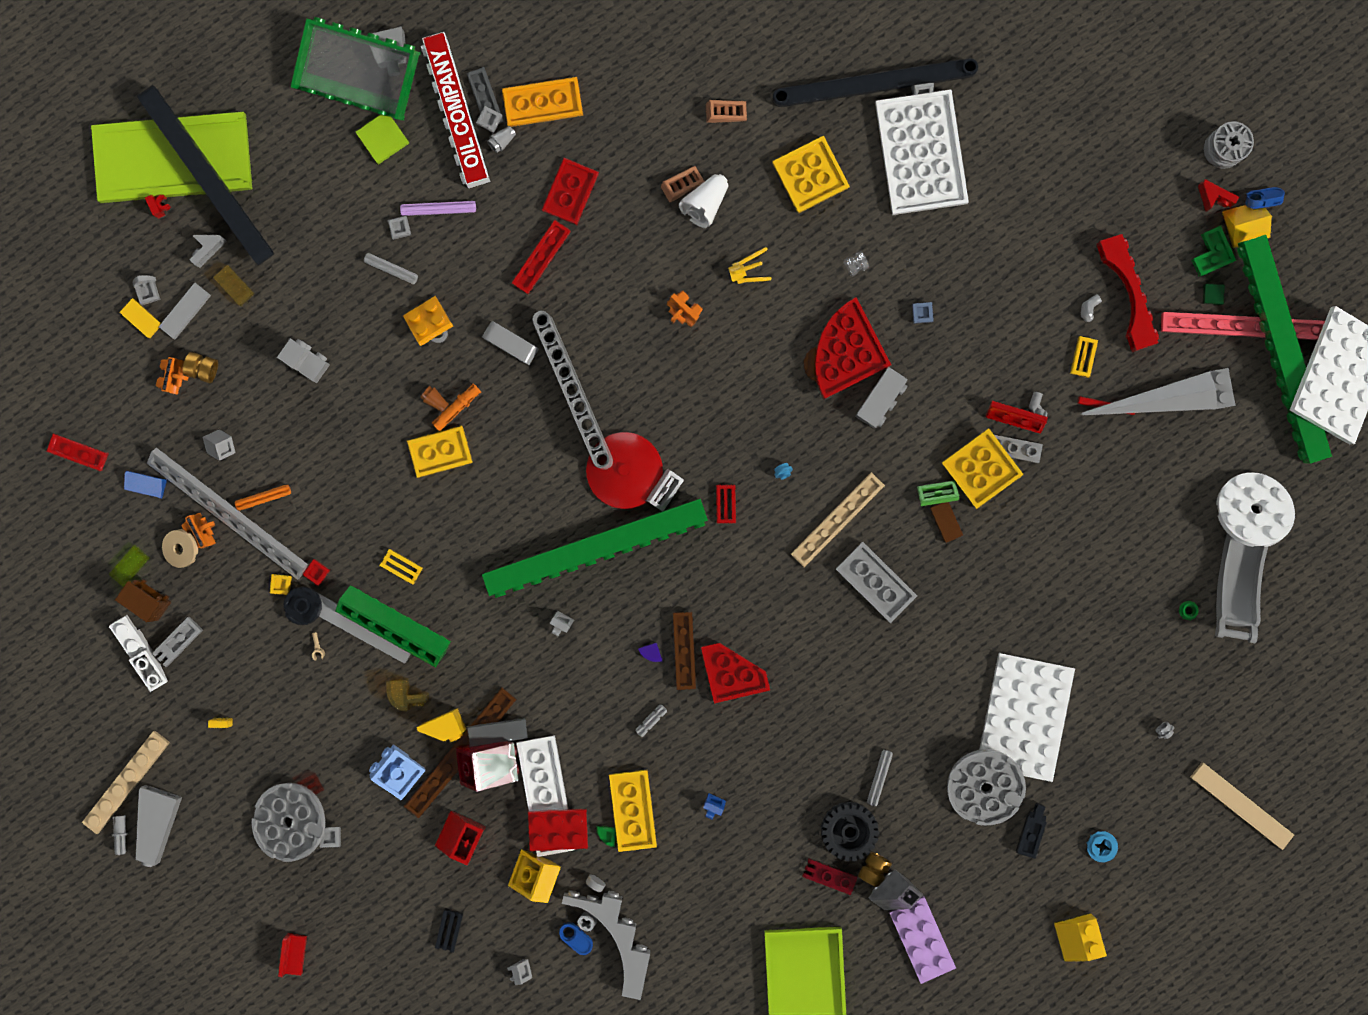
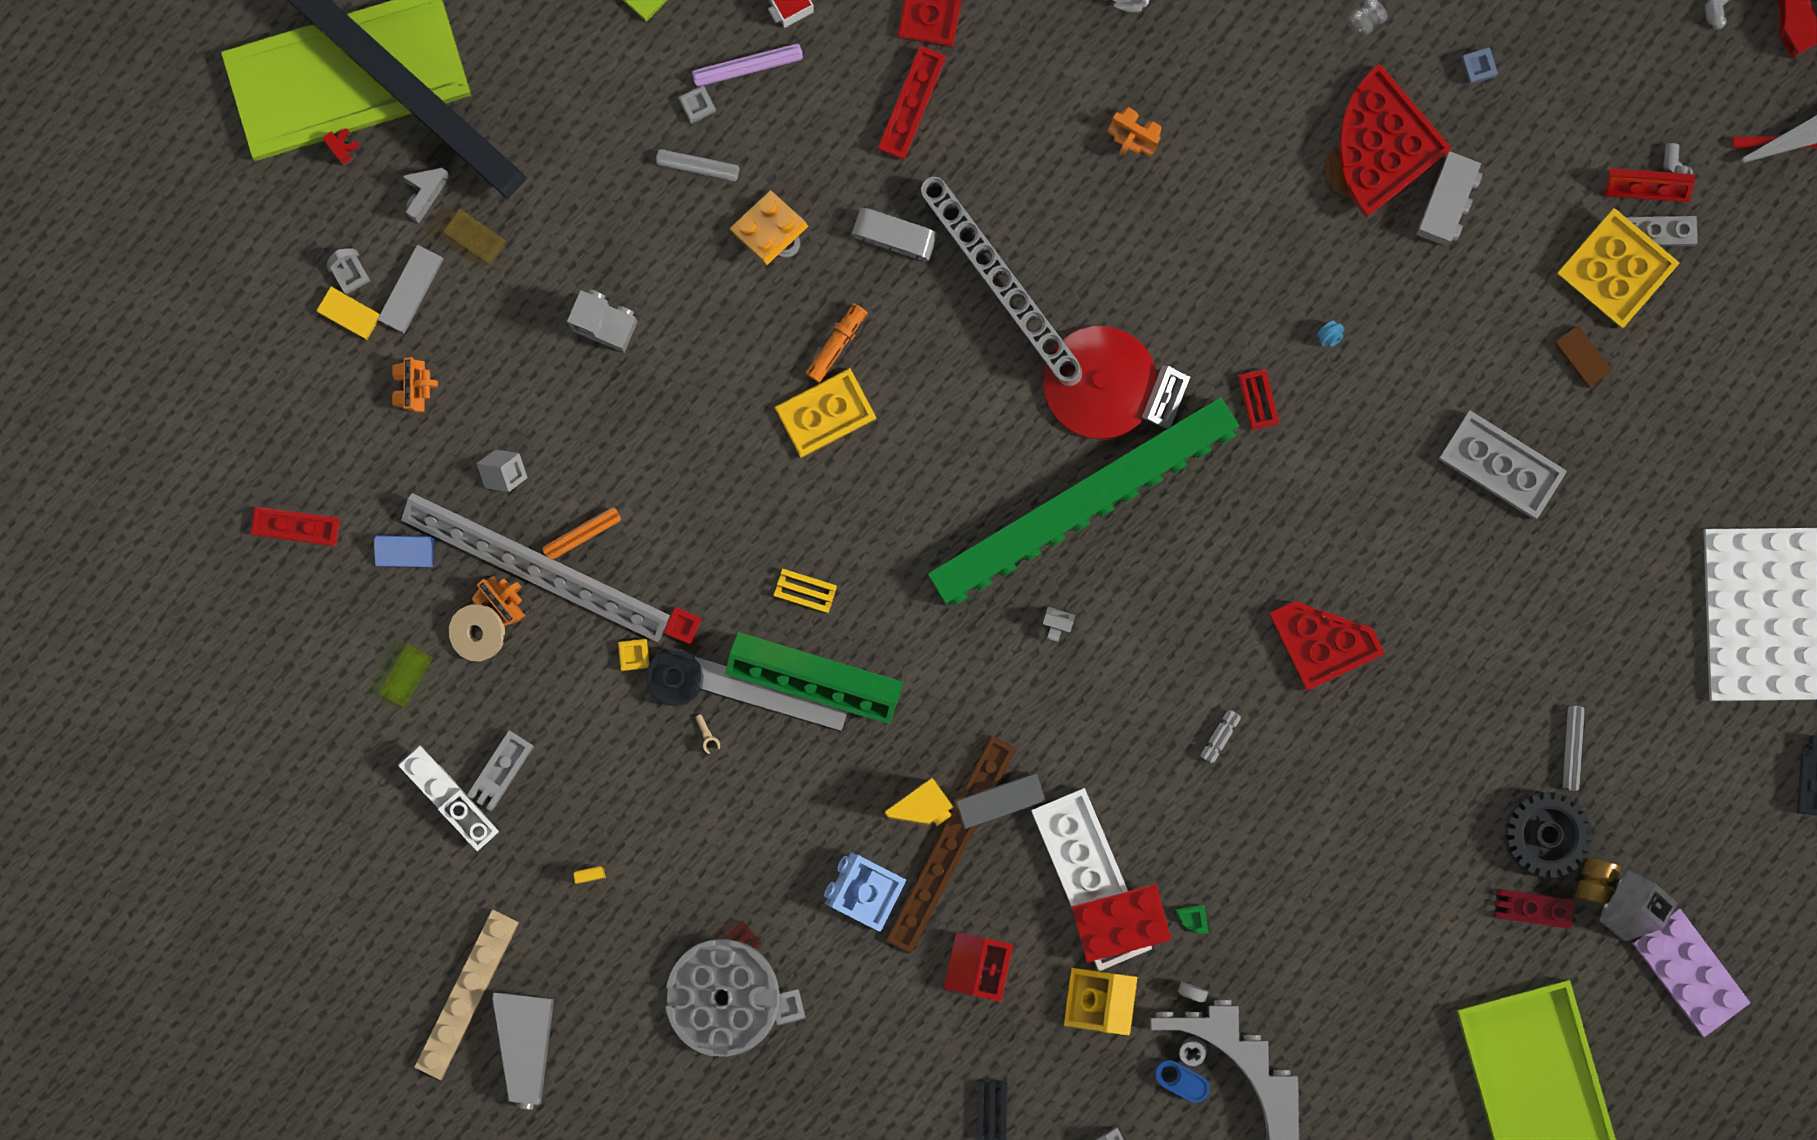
camera: 15 degrees left, 5 degrees down
(119, 834) = (474, 1072): light grey axle -> none
(143, 600) = (441, 717): reddish brown container -> none
(196, 366) = (452, 364): pearl gold wheel -> none
(399, 695) = (844, 779): clear yellow brick -> none
(434, 399) = (801, 338): dark orange cone -> none
(487, 765) = (996, 850): slope -> none
(633, 810) = (1224, 873): yellow plate -> none
(651, 652) = (1198, 638): dark purple tile -> none
(684, 650) = (1246, 623): reddish brown plate -> none
(713, 805) = (1341, 840): blue tile -> none
(738, 270) = (1201, 63): yellow plant -> none
(837, 519) = (1425, 387): tan tile -> none
(938, 496) = (1564, 321): bright green tile -> none
(993, 805) = (1702, 721): light grey plate -> none
(1076, 356) = (1725, 103): yellow tile -> none

